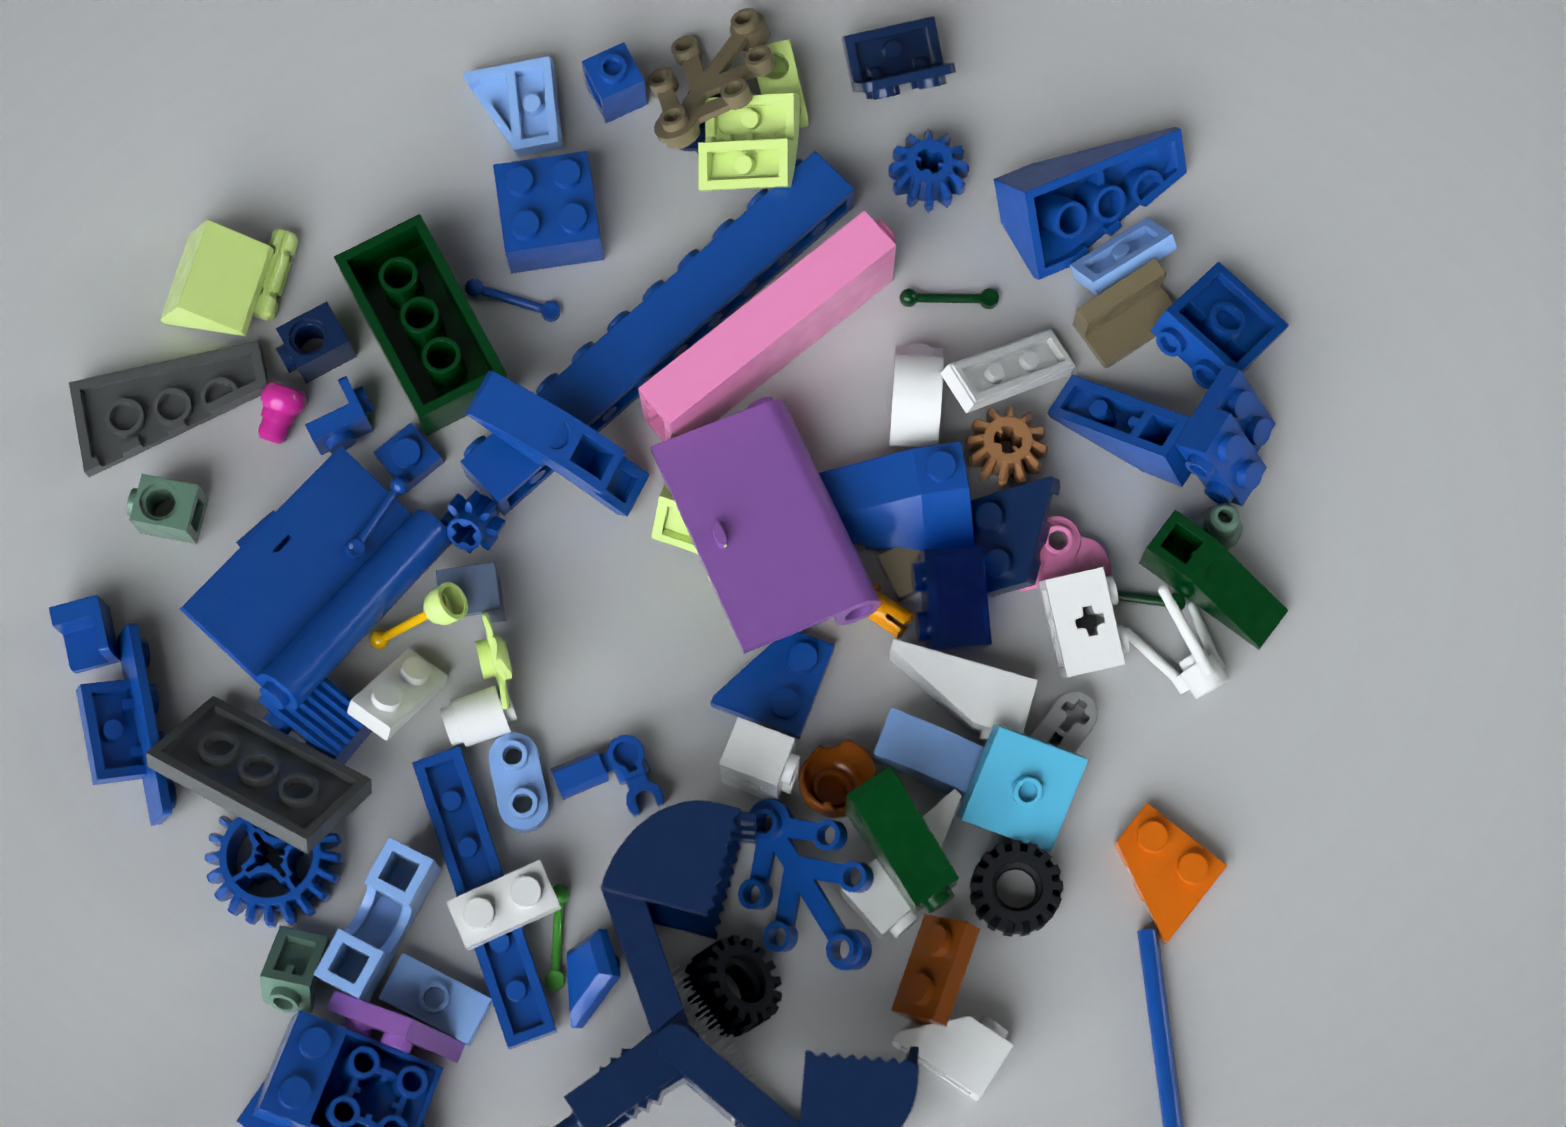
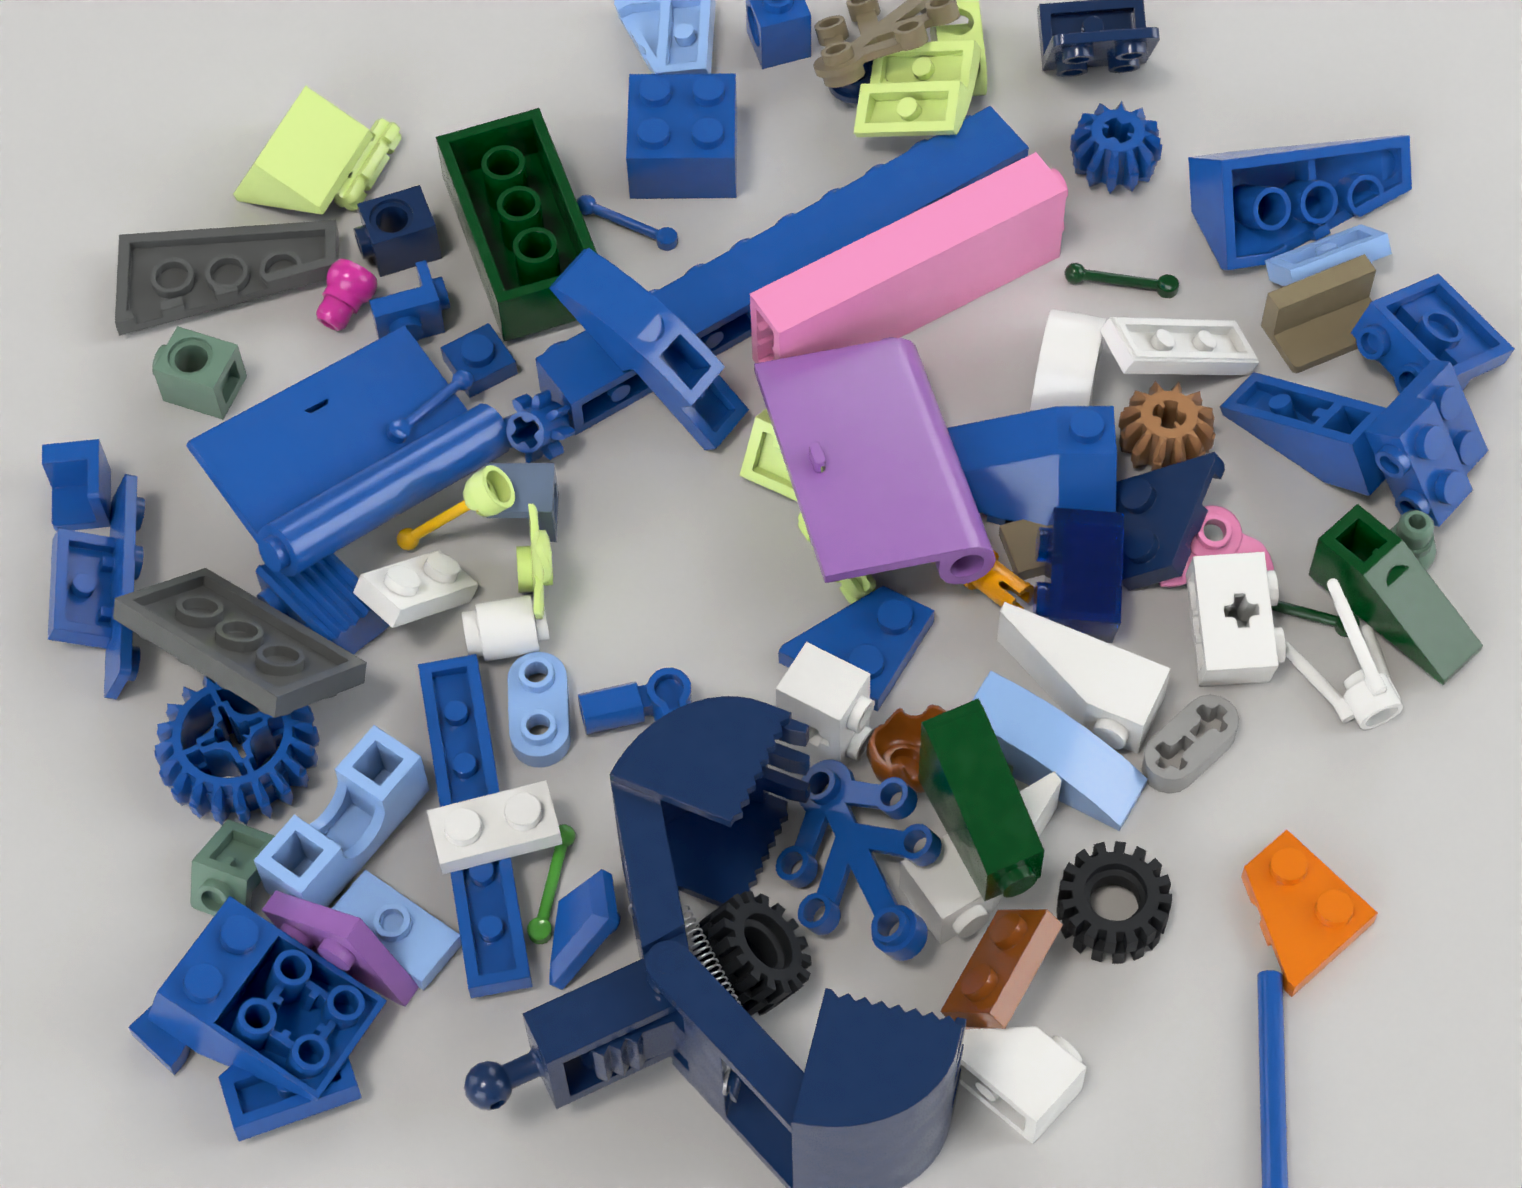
camera: 10 degrees right, 15 degrees down
(1022, 787) = (1136, 783): medium azure plate -> none

